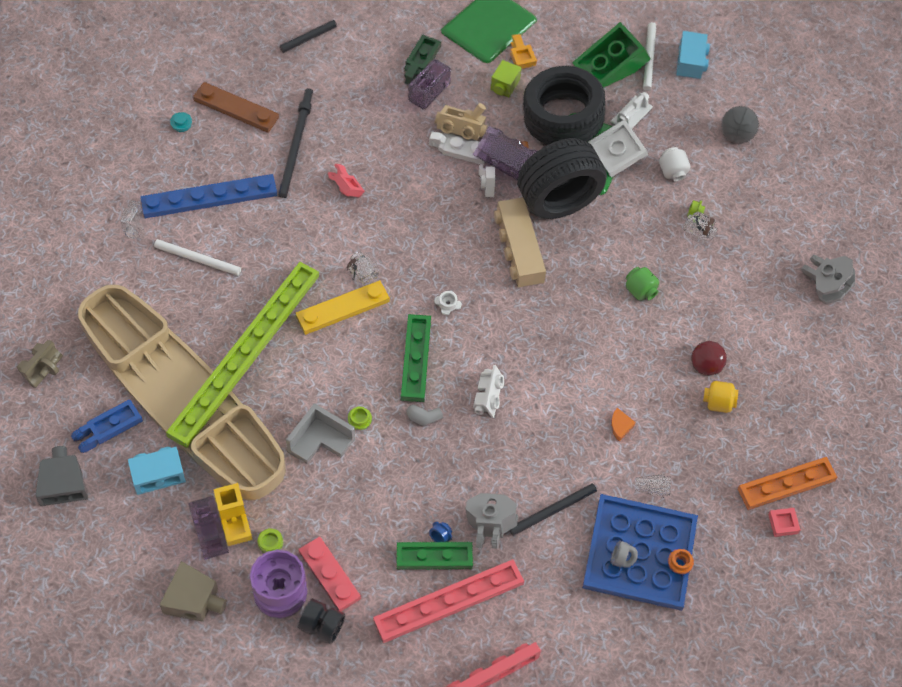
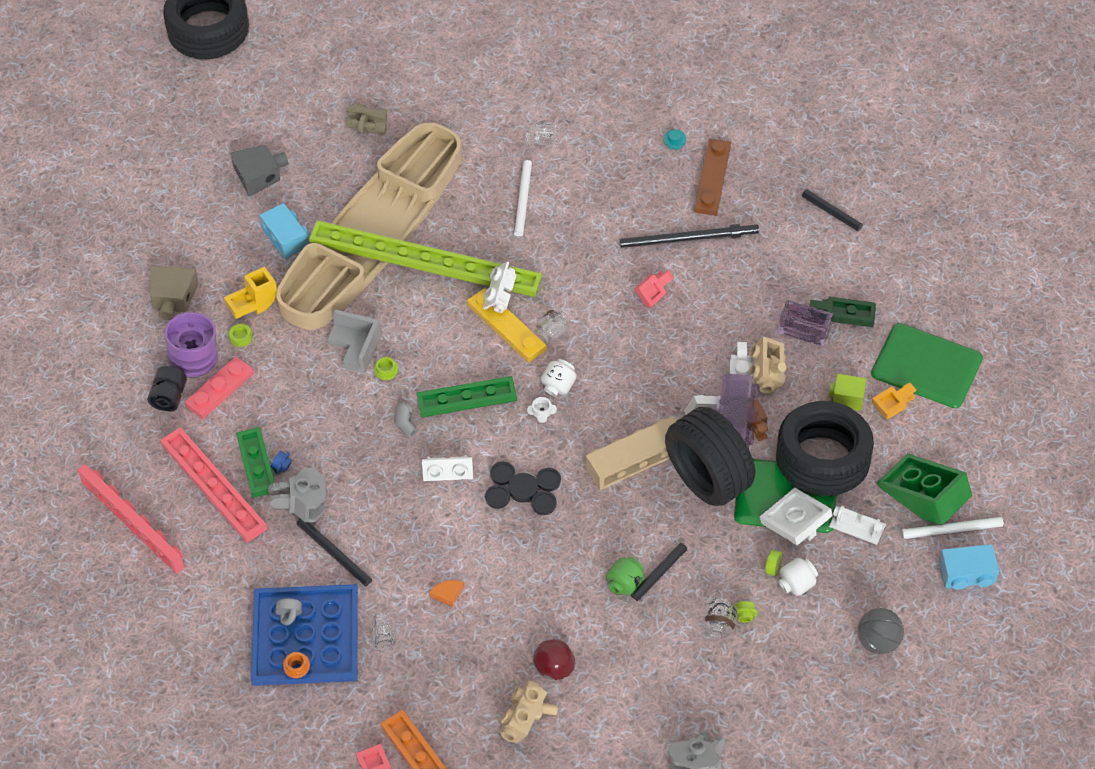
camera: 80 degrees right, 5 degrees down
(107, 425) = (321, 185): blue hinge -> none
(208, 196) = (597, 187): blue plate -> none
(208, 527) = (229, 282): clear purple brick -> none
(308, 297) = (502, 279): none -> white hinge
(421, 279) = (558, 377): none -> white head
(526, 339) = (523, 488): none -> black piece
(636, 256) = (659, 571): none -> black bar
(656, 176) = (773, 562): none -> lime tile
(721, 396) = (504, 674): yellow head -> none
(762, 391) = (525, 708): none -> tan brick

